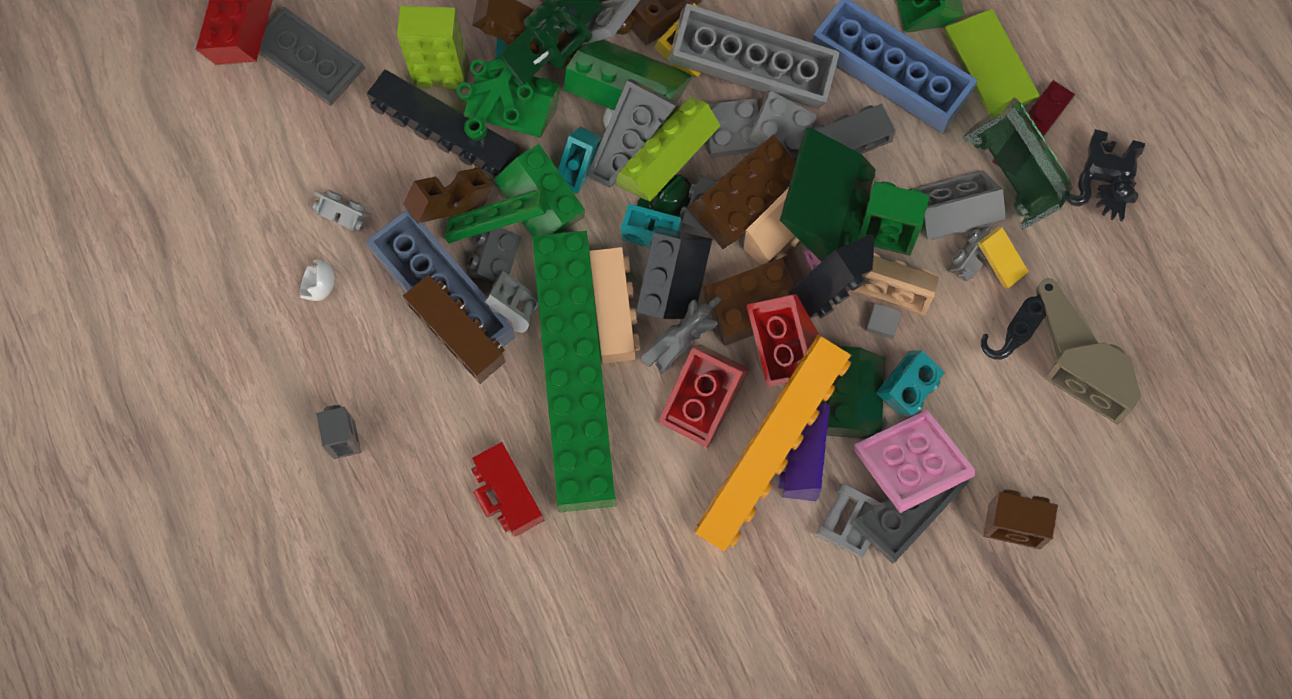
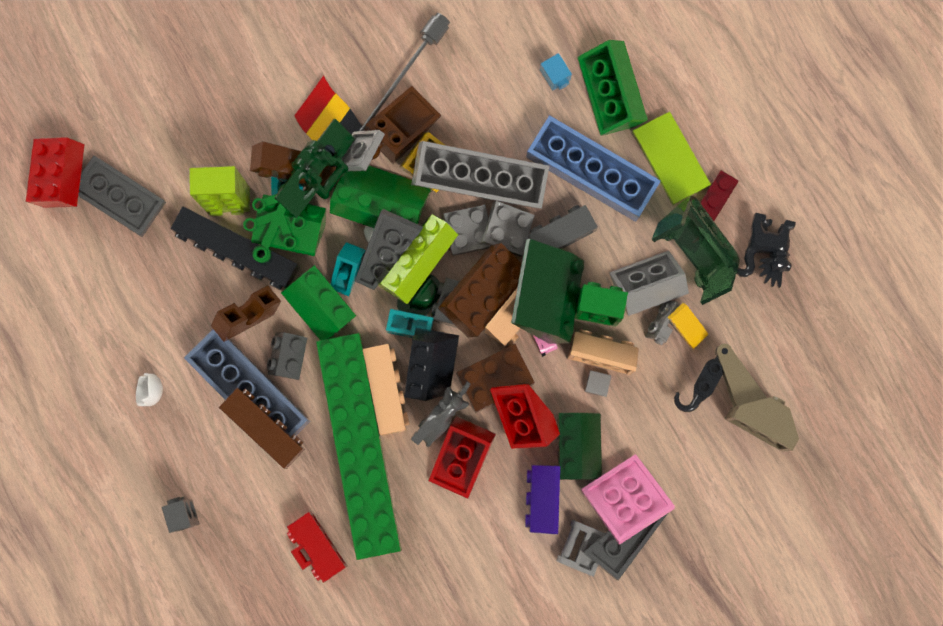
camera: 10 degrees left, 10 degrees up
(351, 213) = (151, 322): light grey hinge -> none
(496, 215) = (286, 326): green tile -> none
(504, 298) = (299, 396): light grey plate -> none
(772, 442) = (518, 498): light orange brick -> none
(835, 277) = (559, 364): black slope -> none
(907, 378) = (617, 432): teal brick -> none
(1021, 519) = (711, 540): reddish brown brick -> none

